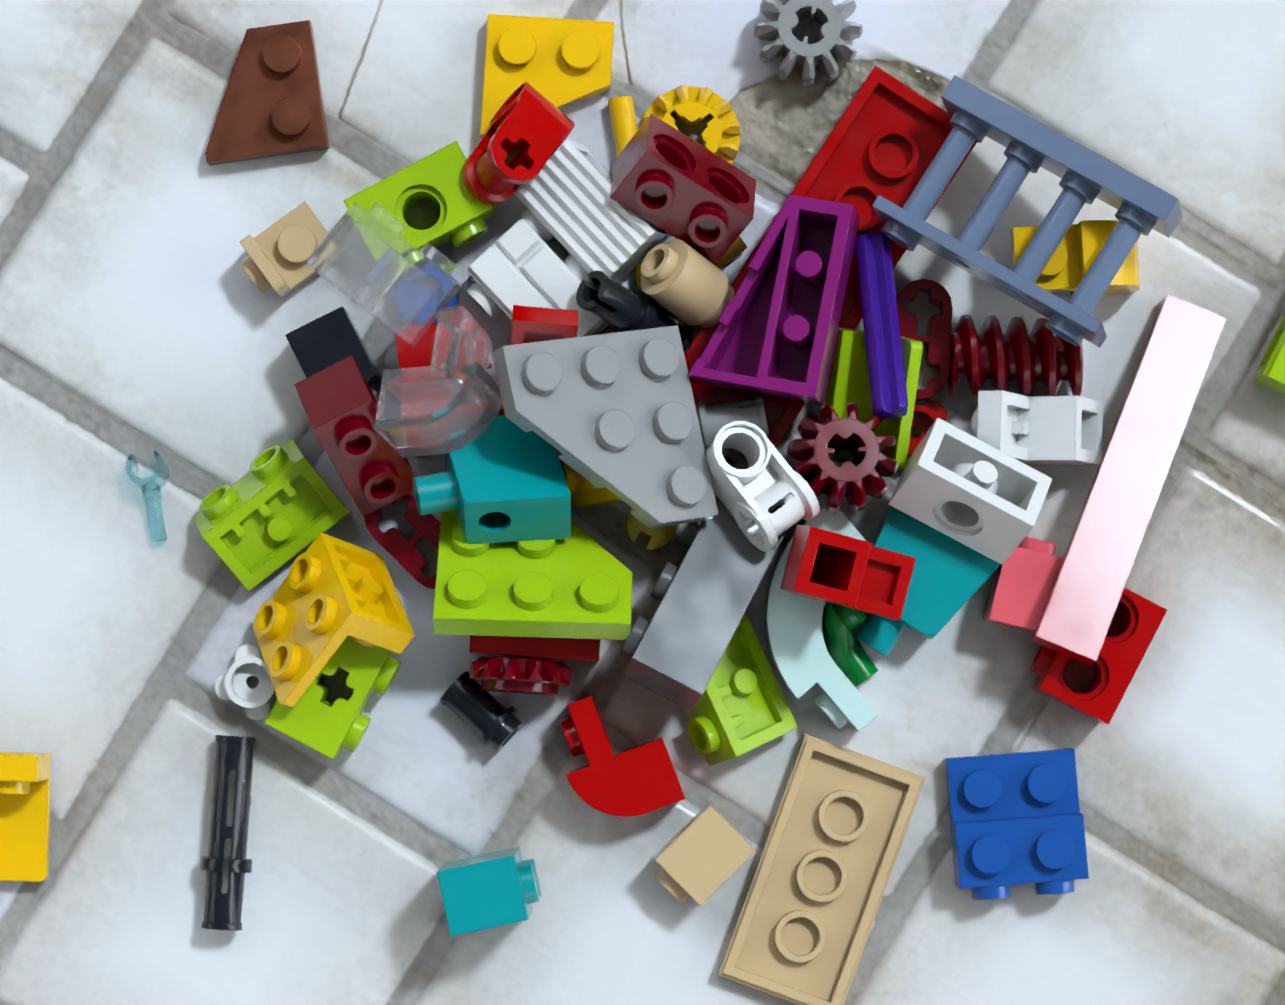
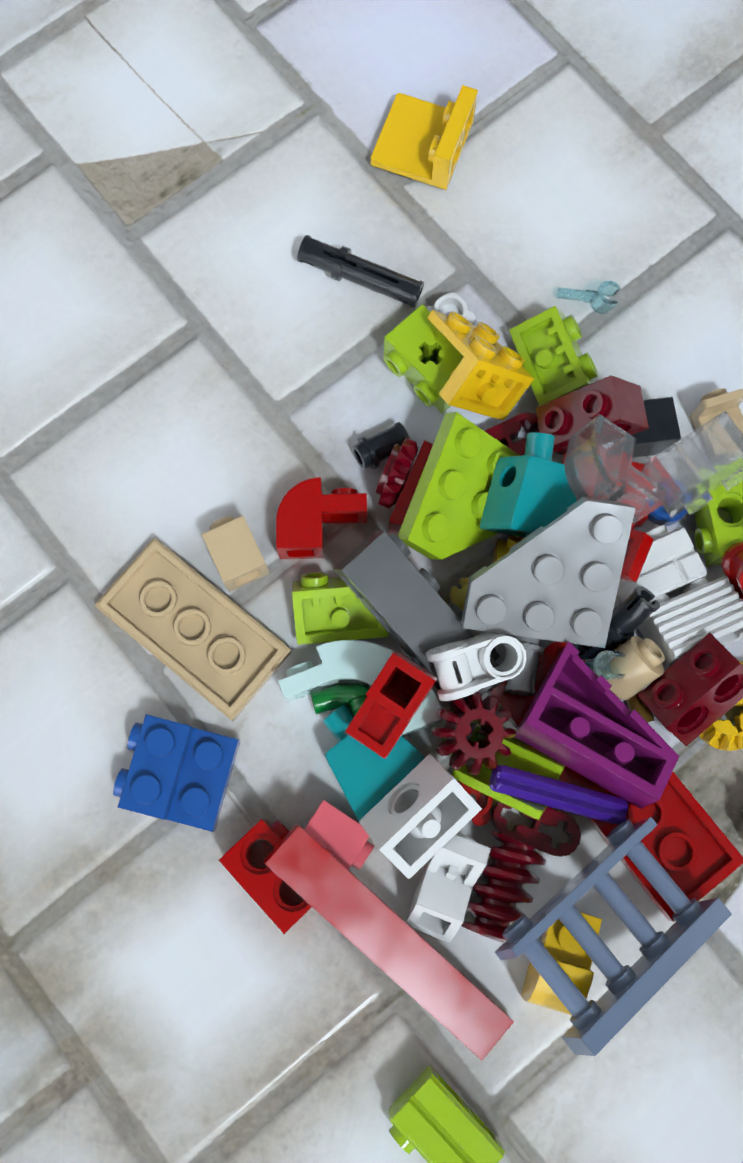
camera: 110 degrees right, 10 degrees down
(488, 890) = (263, 401): teal brick -> none
(699, 322) = (601, 663): none -> clear light blue hand

